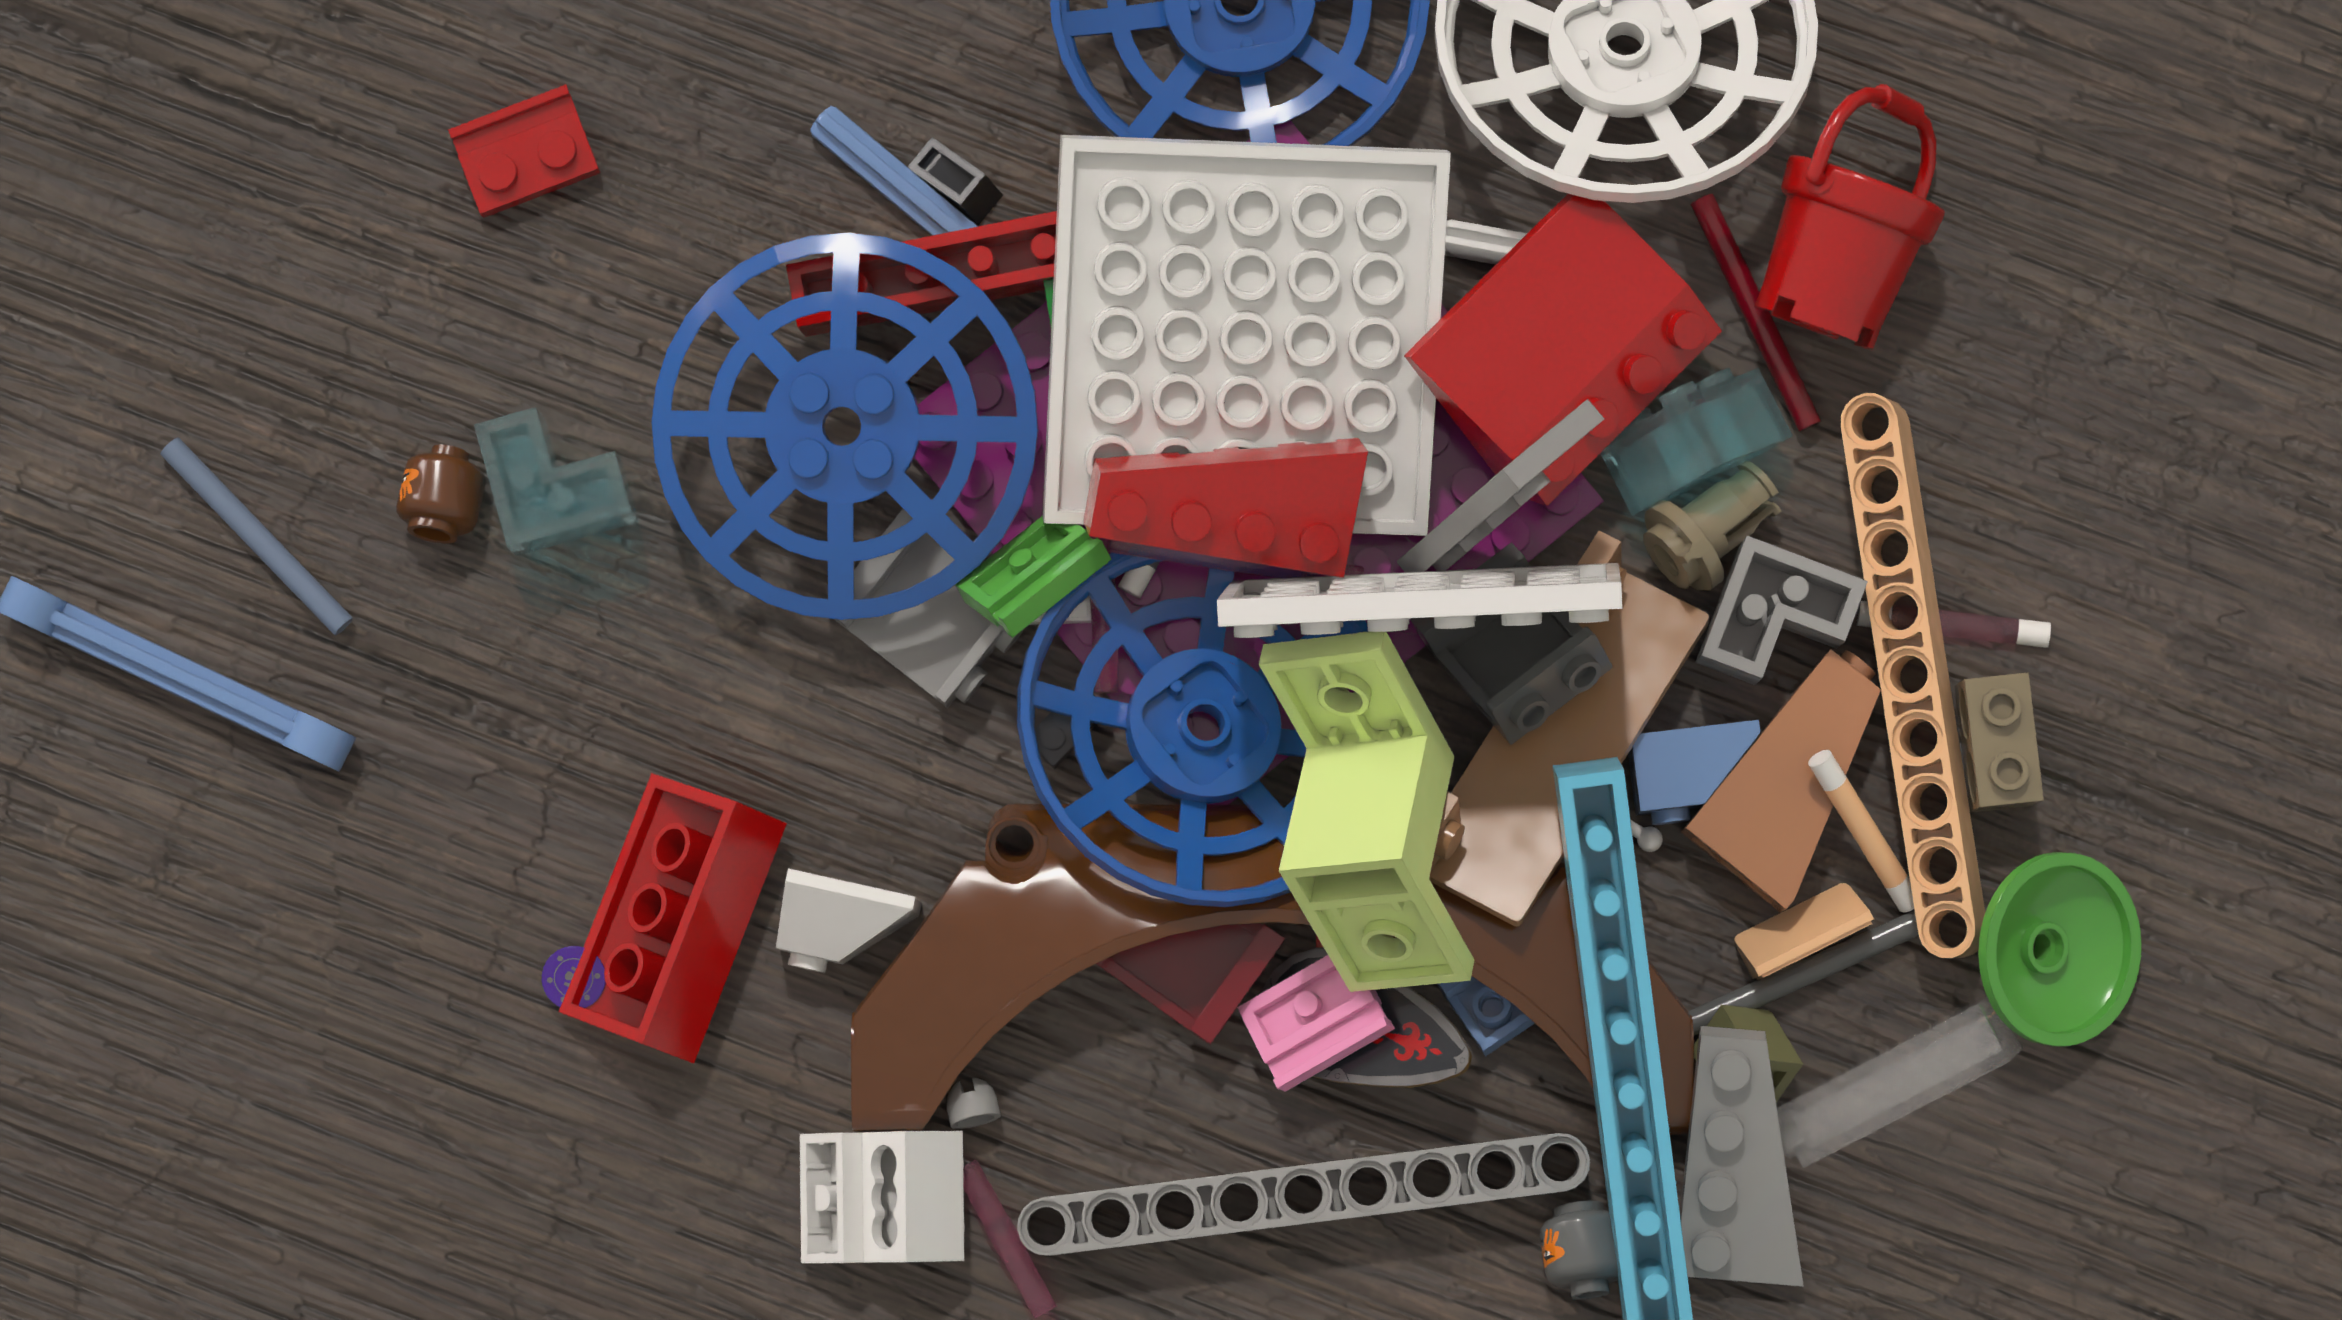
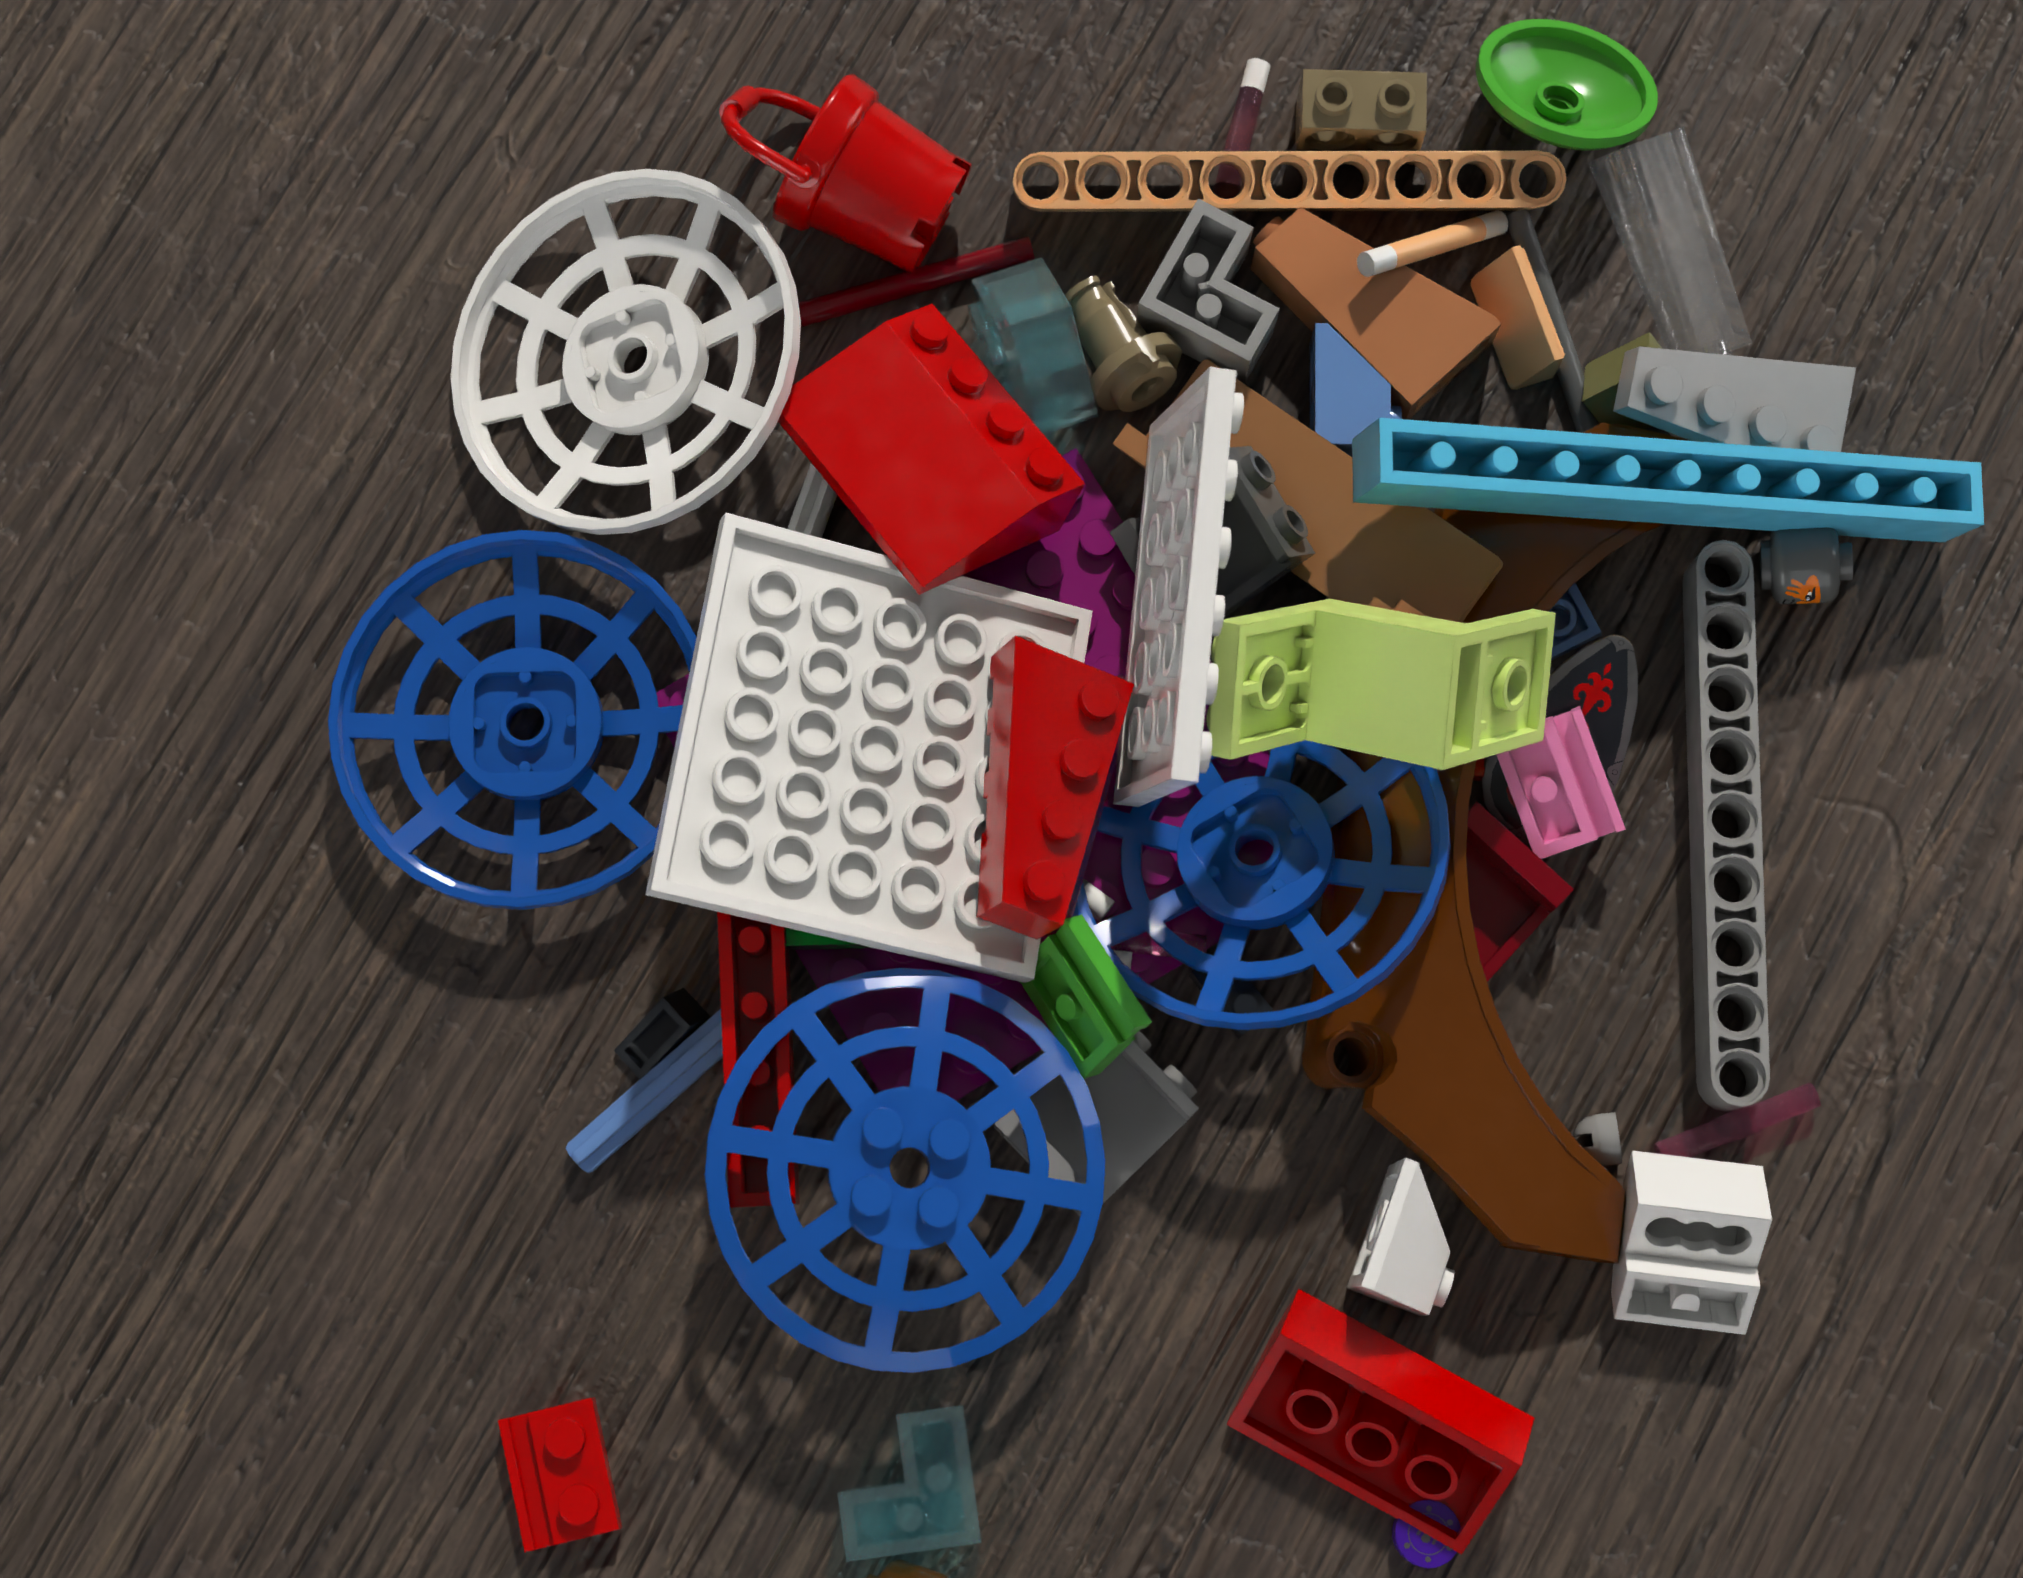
camera: 85 degrees left, 5 degrees down
(1499, 496) = (1076, 514): light grey wing -> none

